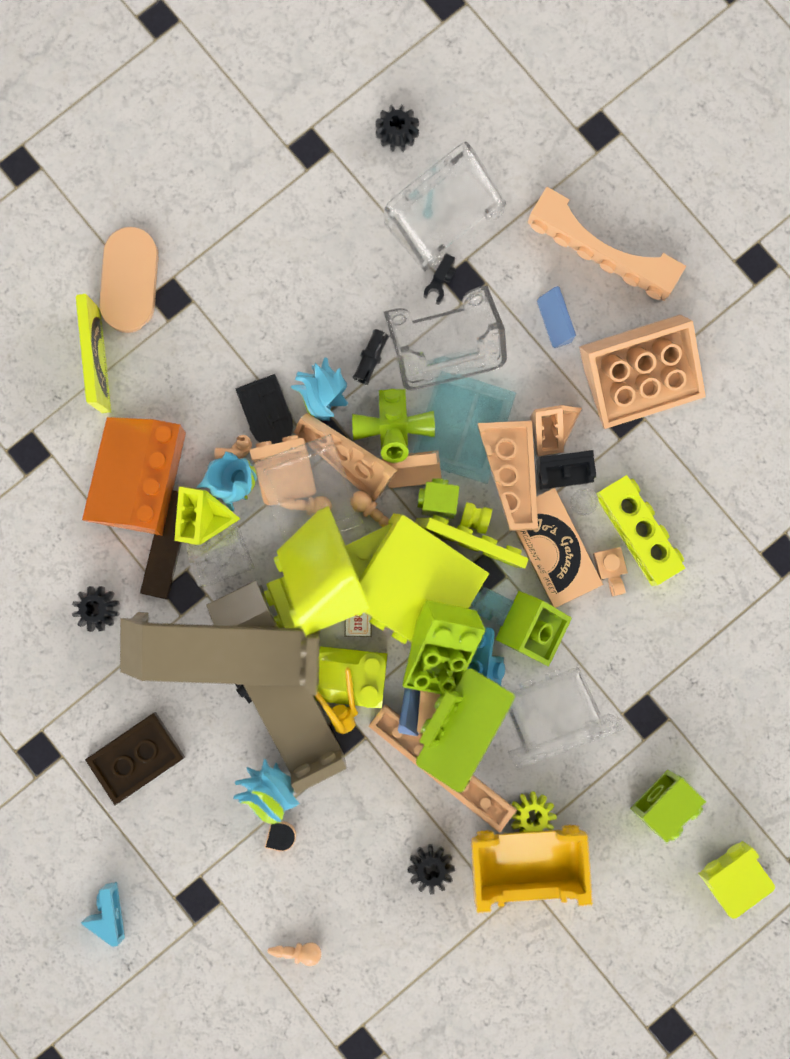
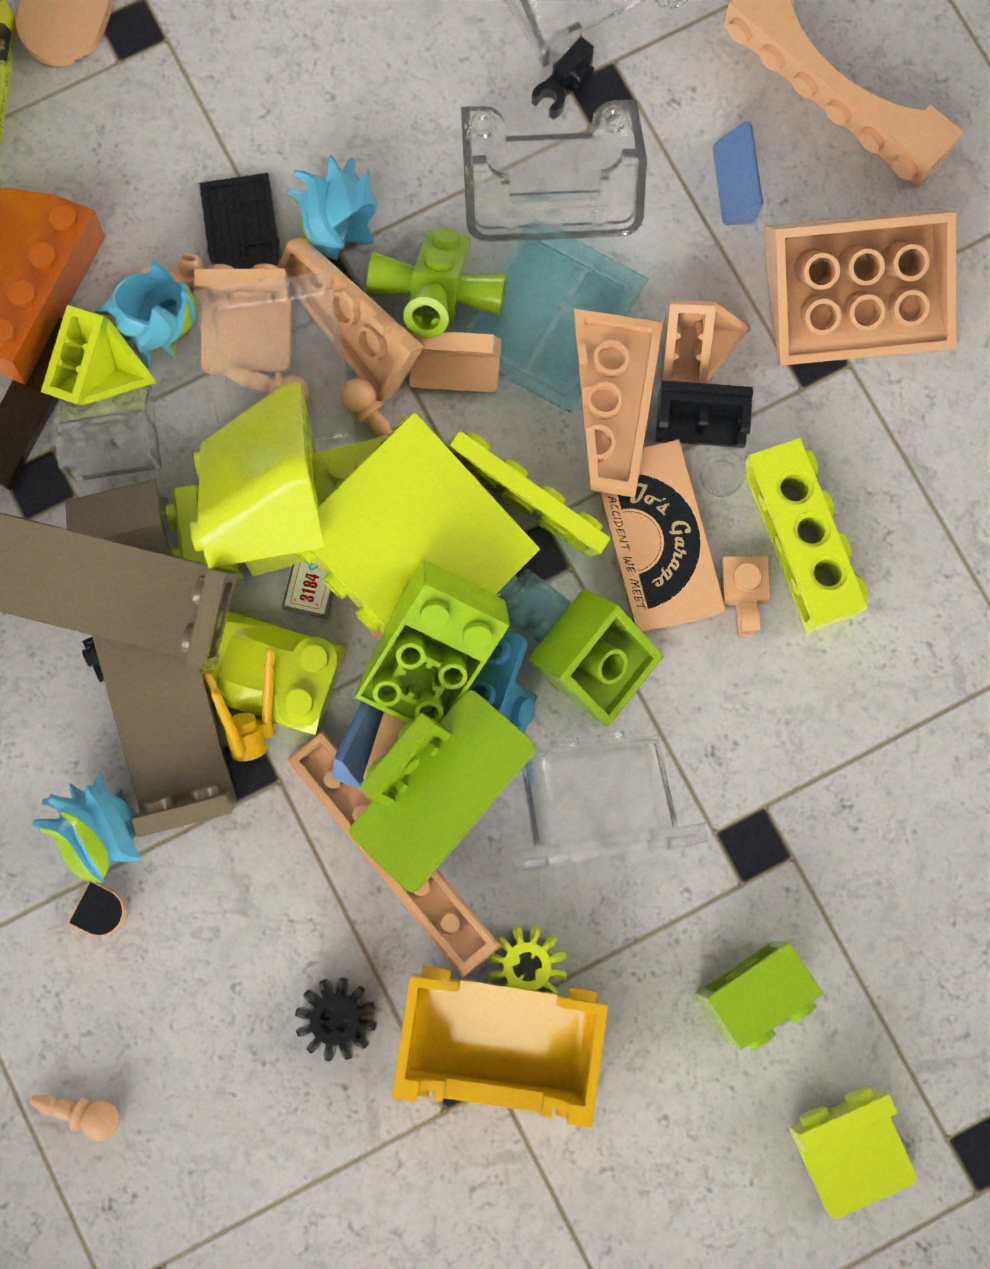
camera: 10 degrees right, 5 degrees down
(370, 356) = (426, 176): black pin -> none
(439, 498) = (485, 408): lime brick -> none
(476, 517) = (540, 459): neon yellow wheel -> none

